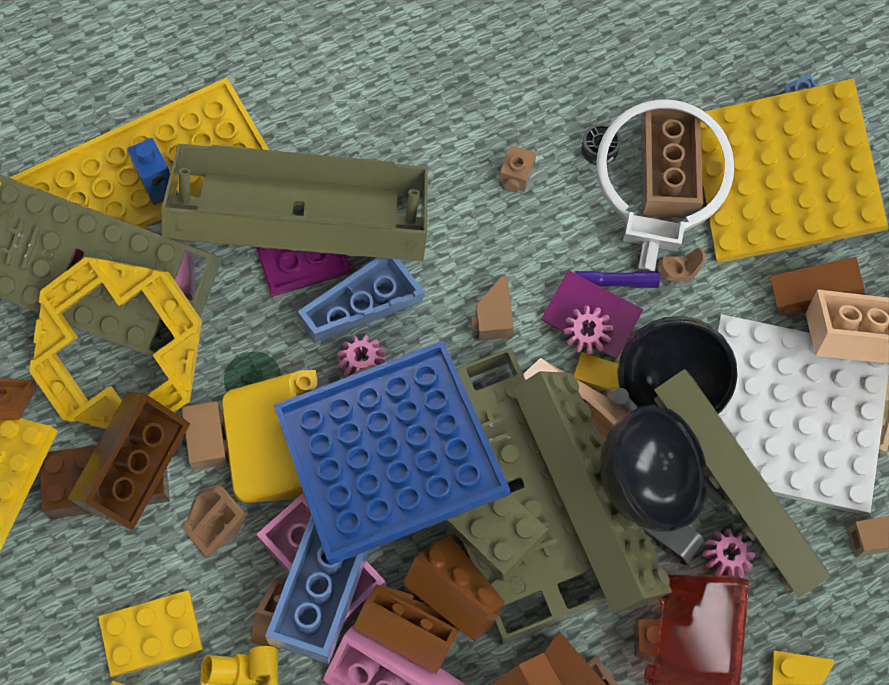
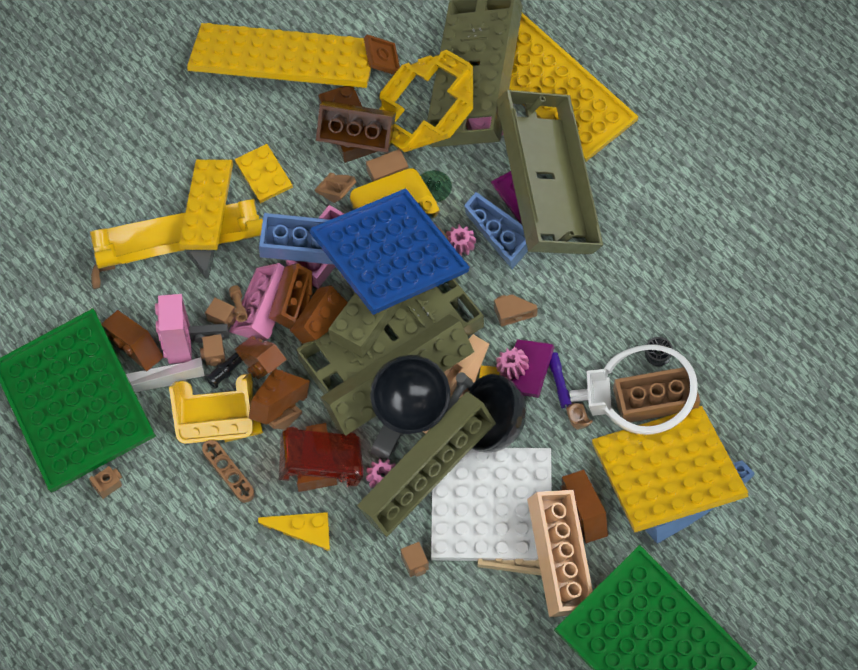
camera: 80 degrees right, 5 degrees down
(149, 165) = (553, 83): blue torso -> none
(517, 169) = (622, 302): medium nougat brick -> none

